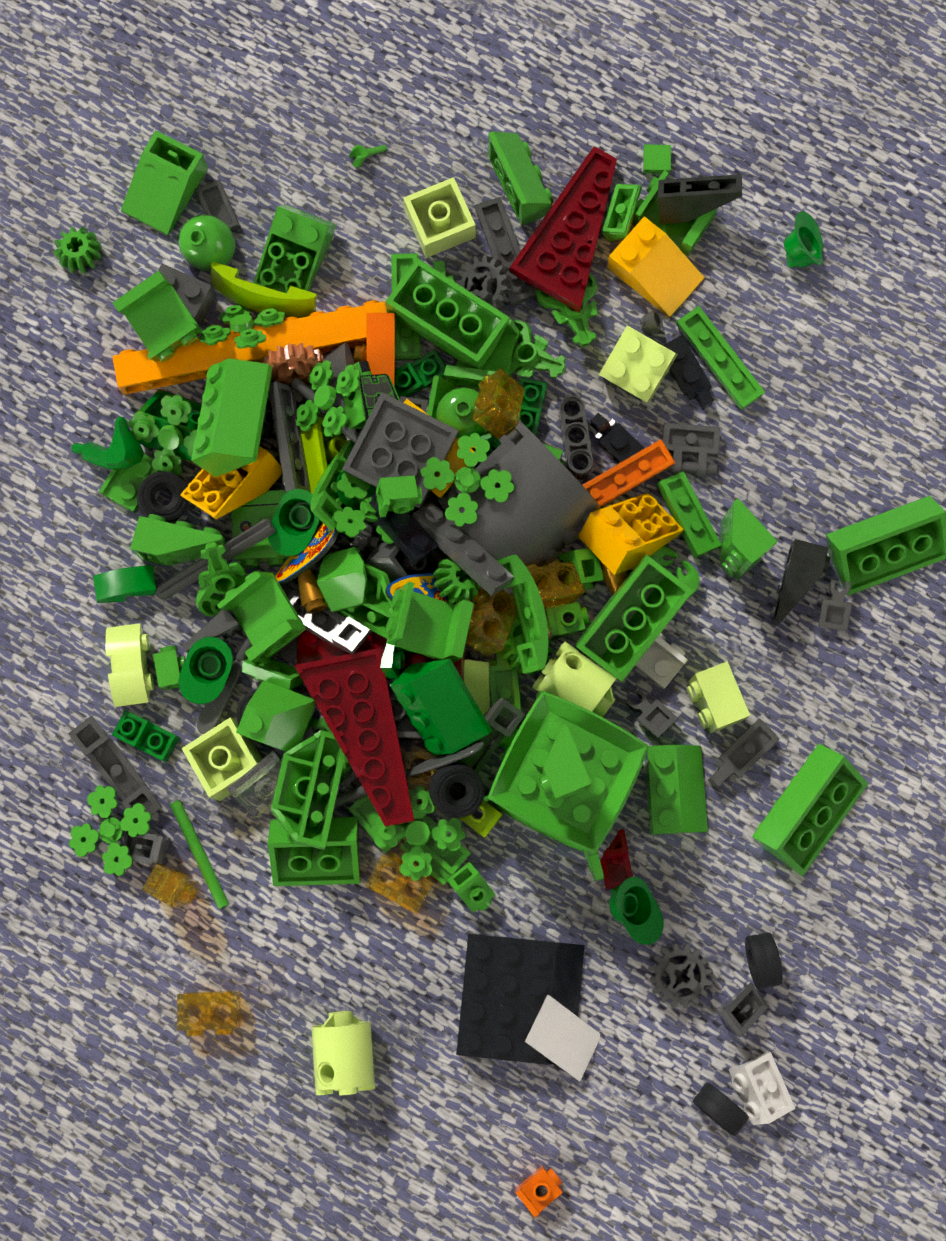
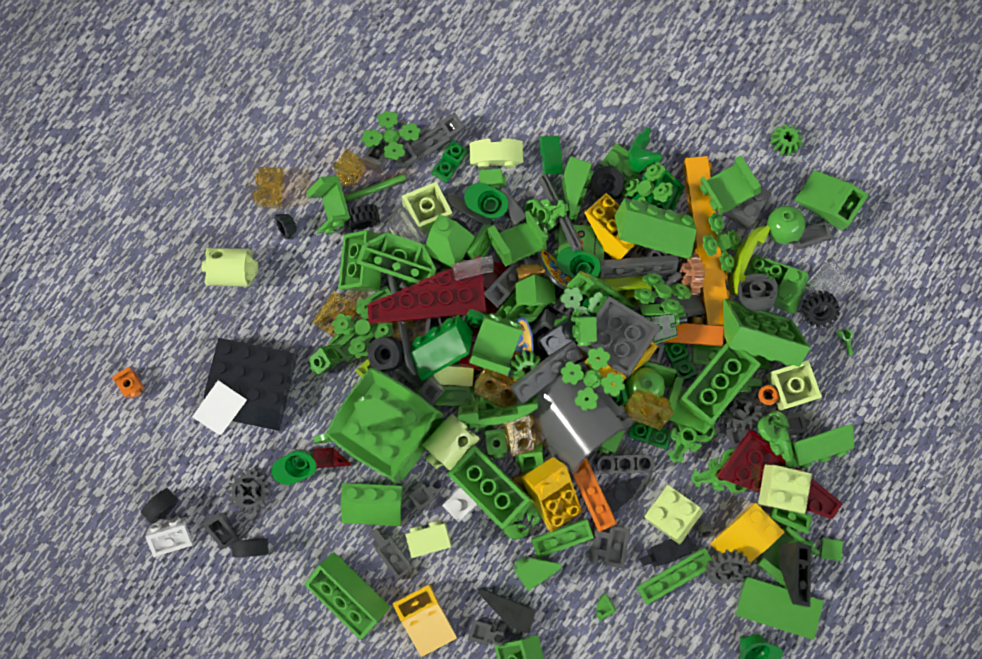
camera: 95 degrees right, 0 degrees up
(228, 904) = (334, 203): none -> bright green panel
(245, 857) = (363, 217): none -> black tyre
(267, 977) = (285, 225): none -> black piece
(290, 180) = (829, 279): none -> clear tile
(312, 269) = (757, 292): none -> dark grey cylinder
(317, 193) = (824, 317): none -> black tyre
(318, 668) = (473, 267): none -> clear tile
(372, 258) = (763, 334): none -> bright green slope
(457, 242) = (768, 390): none -> orange cone
(515, 230) = (778, 436): none -> bright green animal
(587, 217) = (784, 488): none -> yellowish green brick
(701, 287) = (727, 567): none -> dark grey gear
(744, 224) = (773, 608): none -> bright green tile
(775, 449) = (604, 607): none -> bright green tile
(827, 694) = (424, 620): none -> yellow slope

